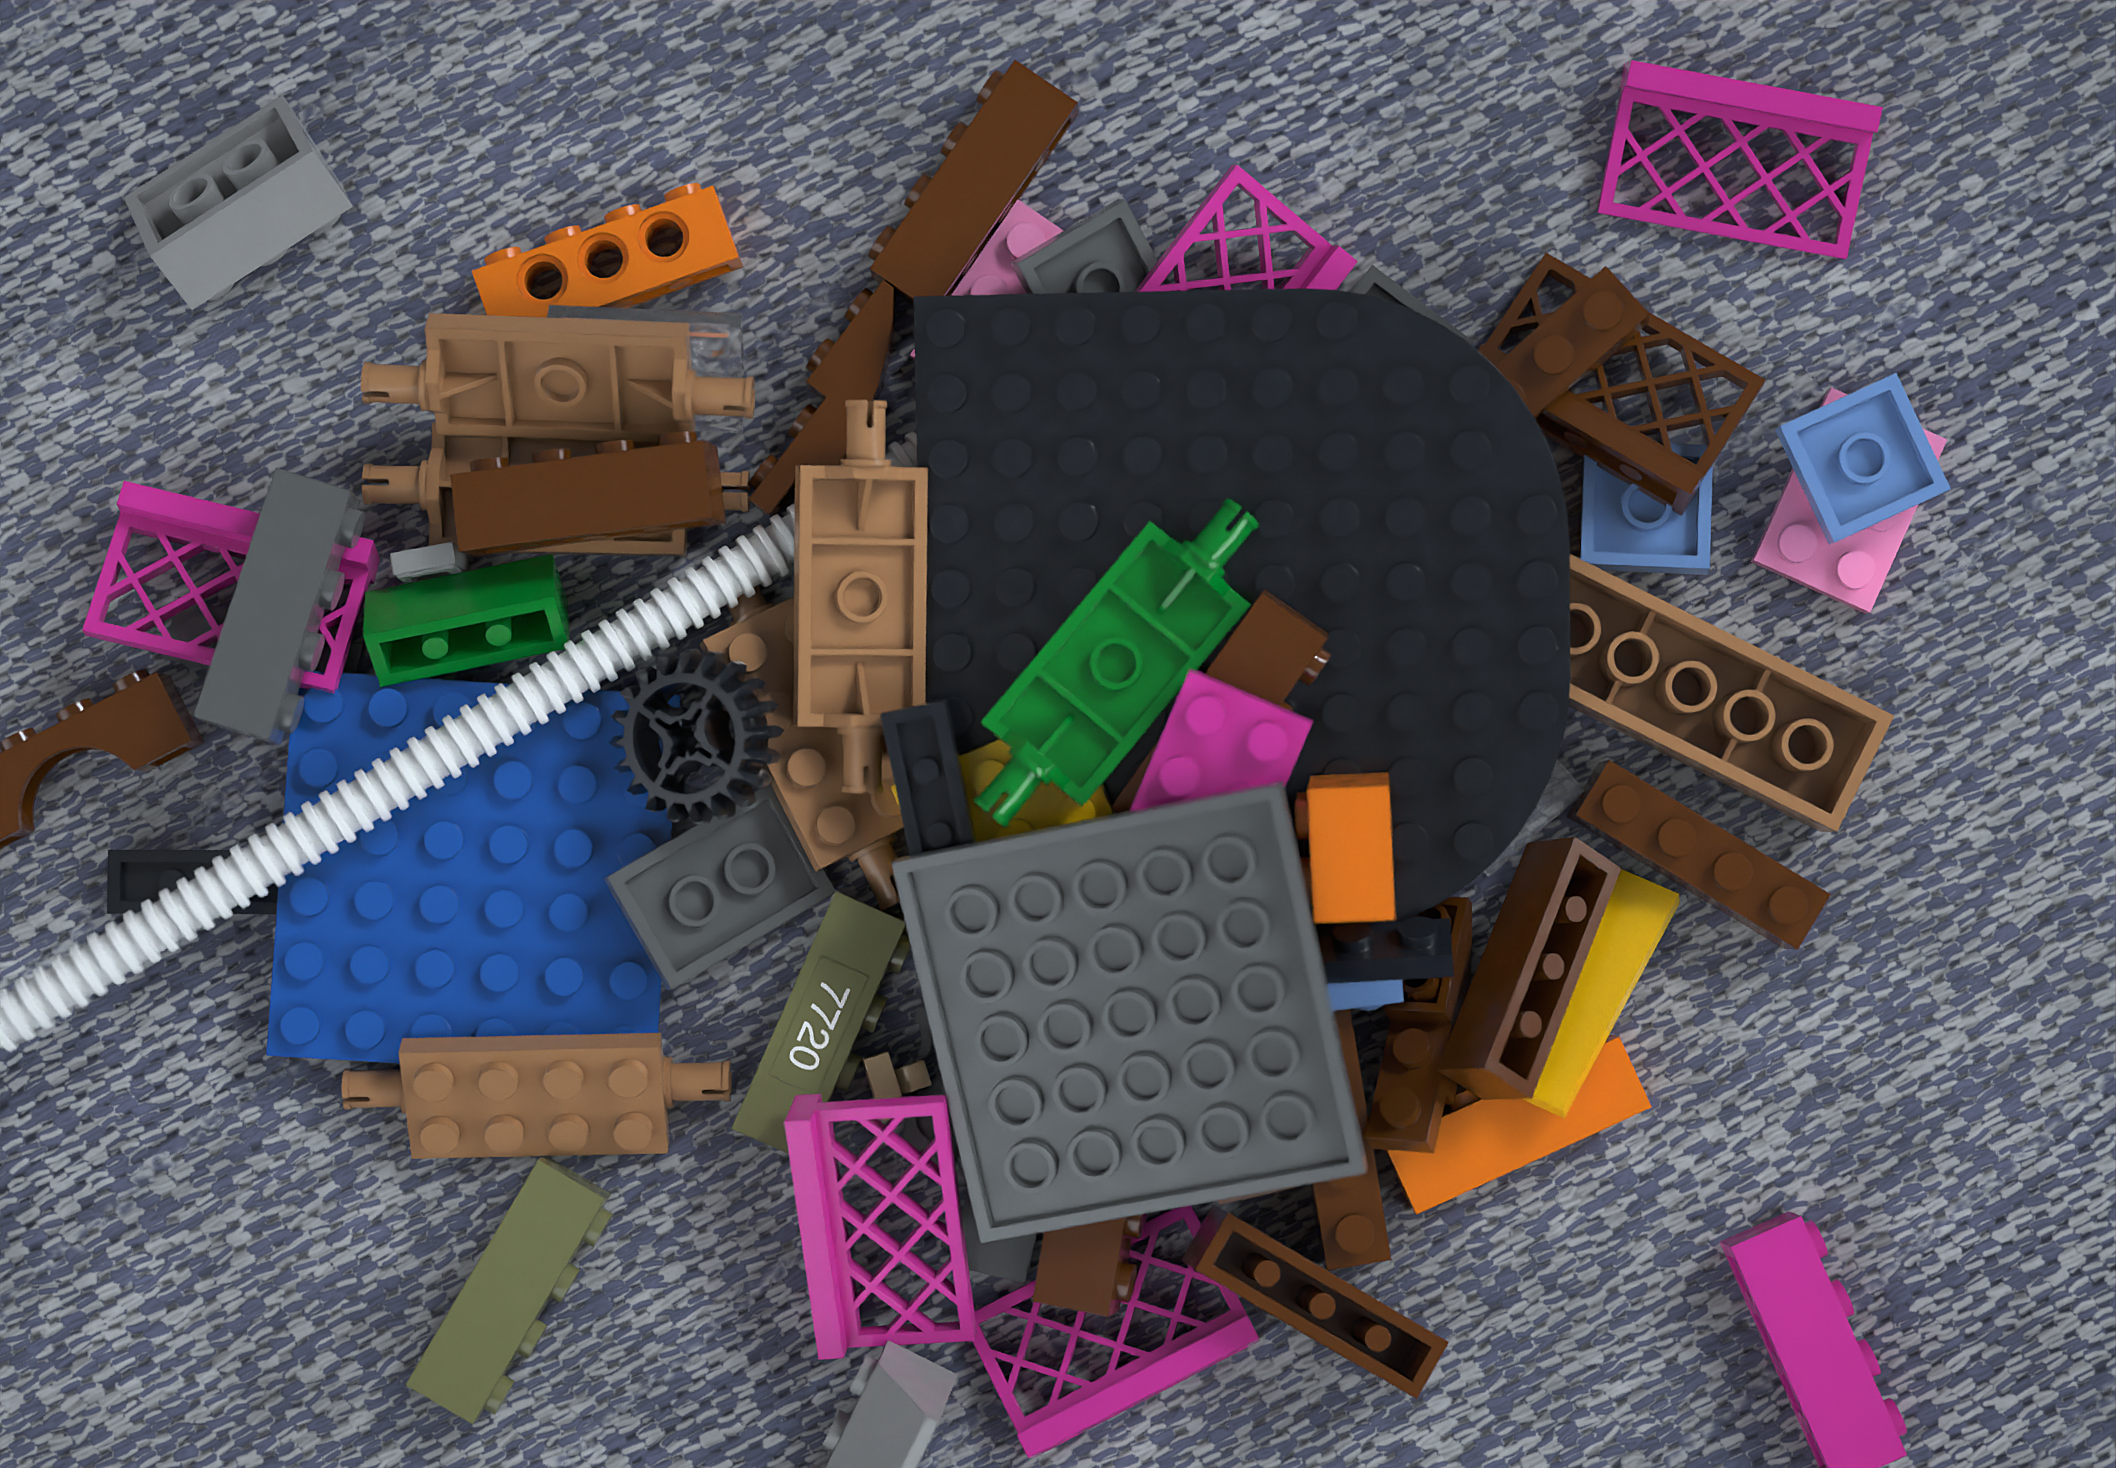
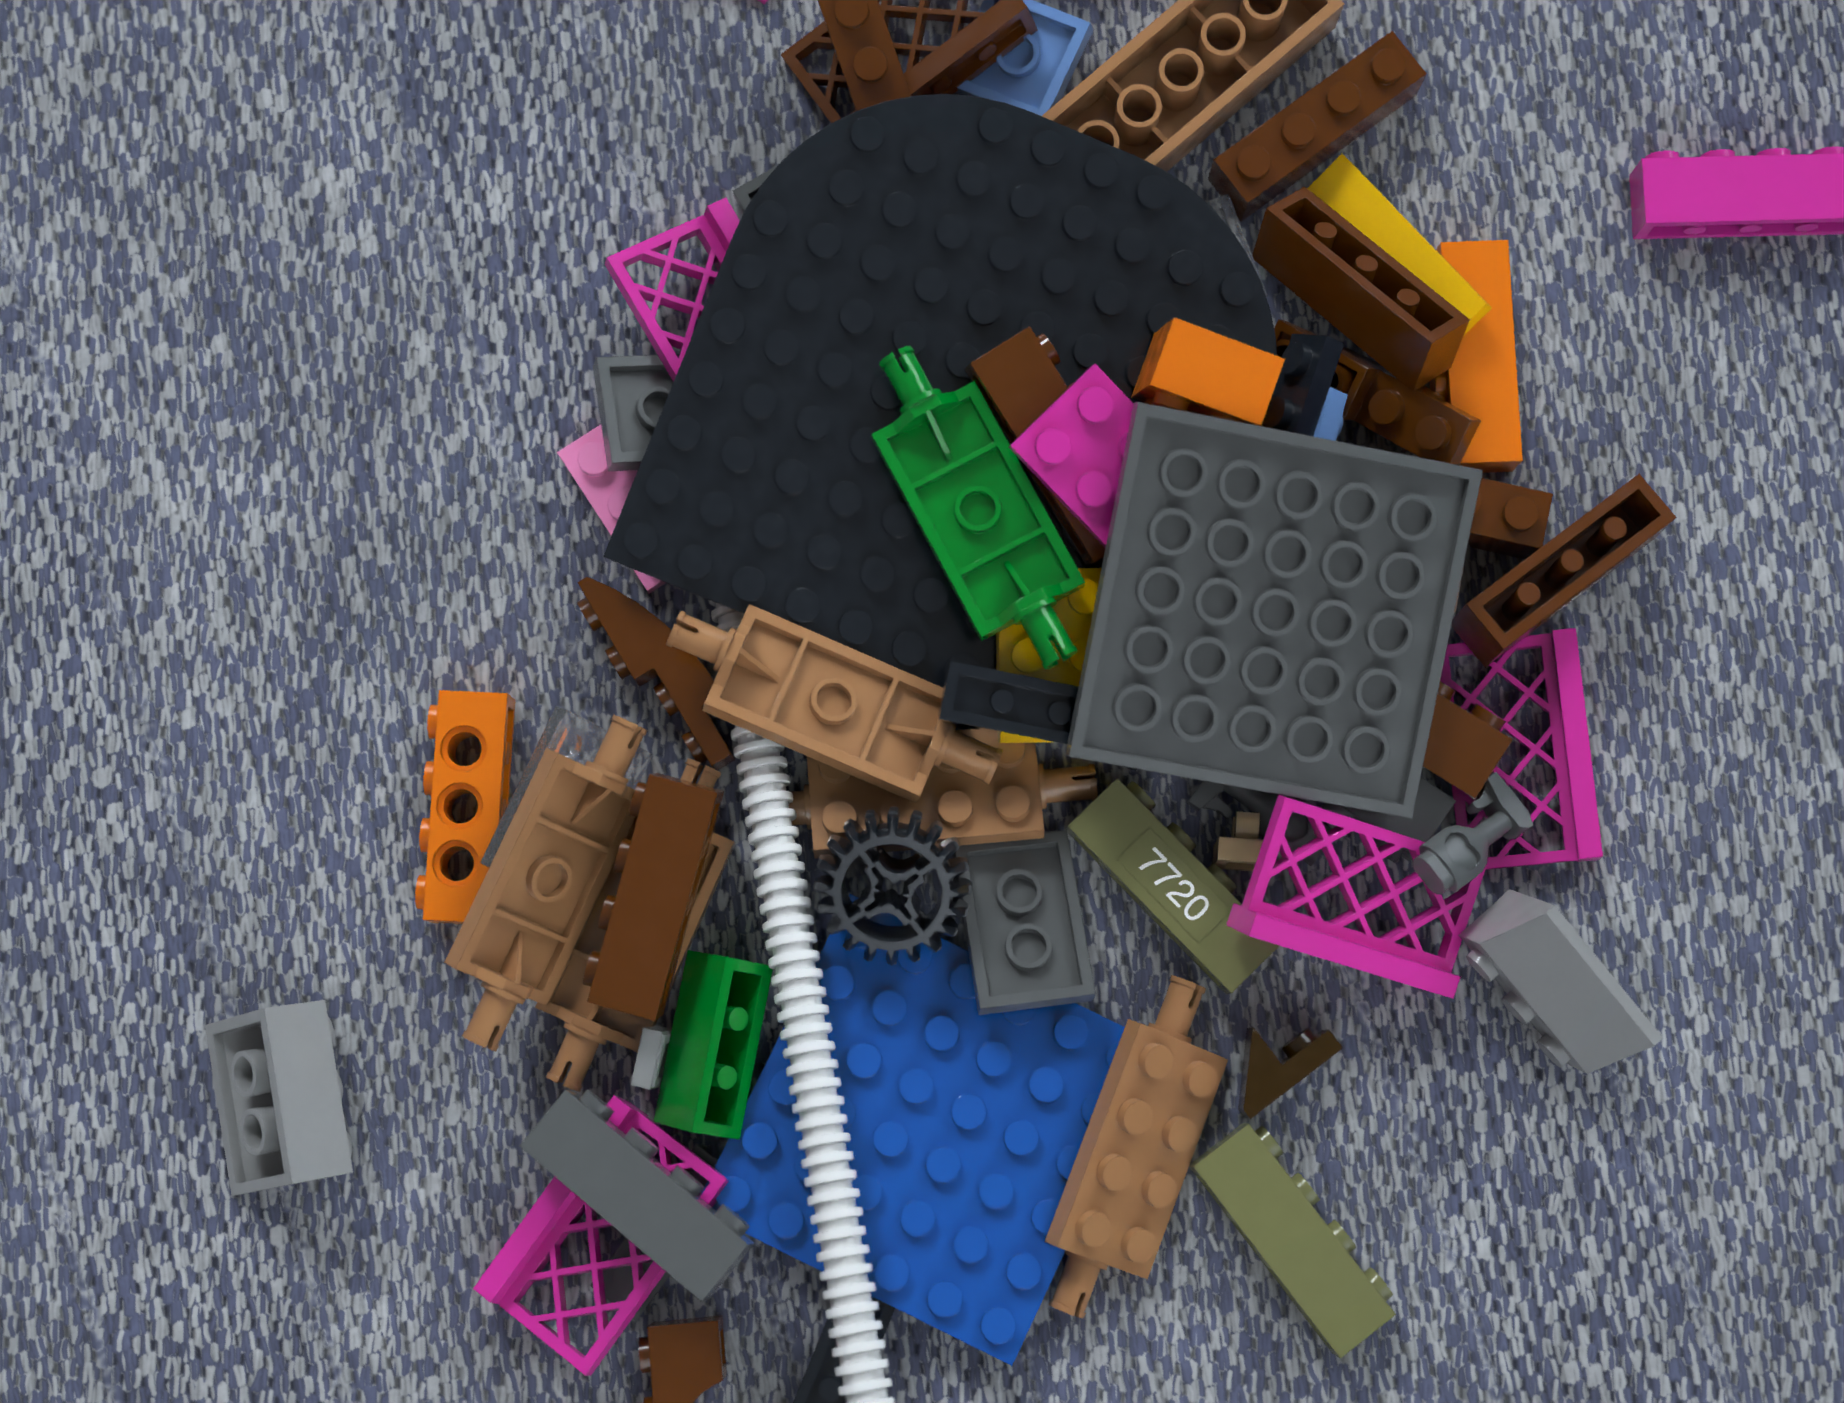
camera: 60 degrees left, 5 degrees down
(662, 1203) = (1267, 1078): none -> dark brown slope
(971, 1309) = (1461, 852): none -> dark grey piece
(975, 185) = (532, 480): reddish brown brick -> none

